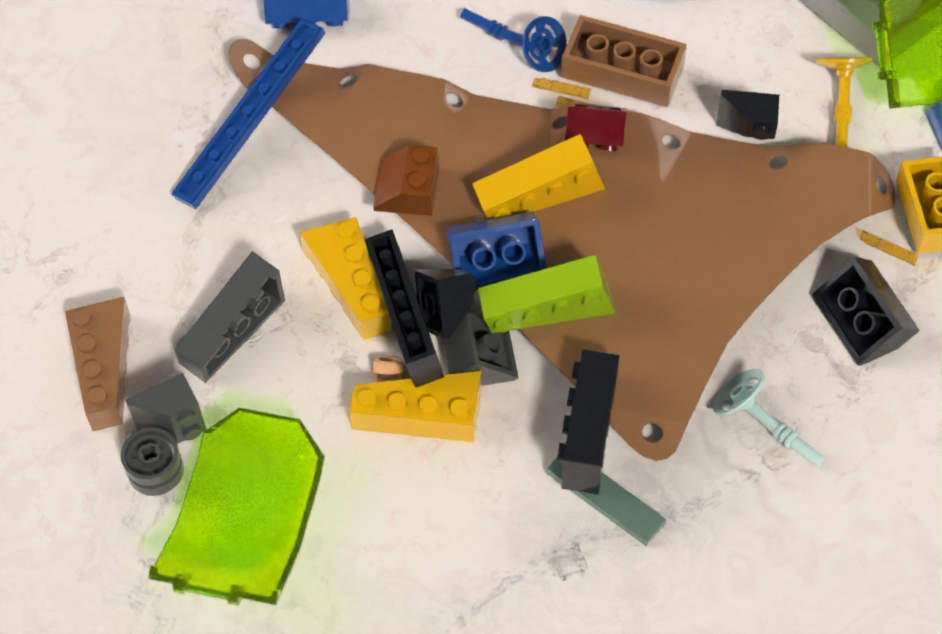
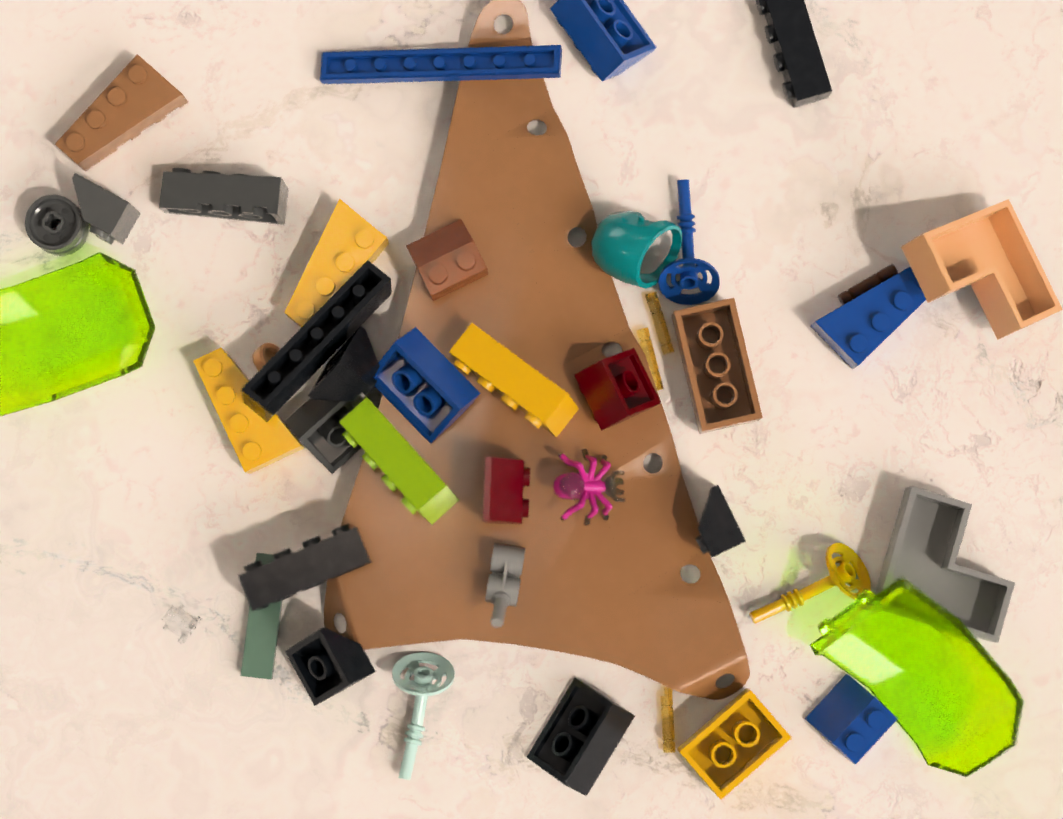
camera: 55 degrees right, 25 degrees up
(490, 60) = (624, 240): none -> teal piece
(624, 238) = (504, 491): none -> dark red slope
(658, 180) = (585, 486): none -> animal
(683, 453) = (328, 664): none -> black slope
(702, 285) = (504, 580): none -> light grey beam

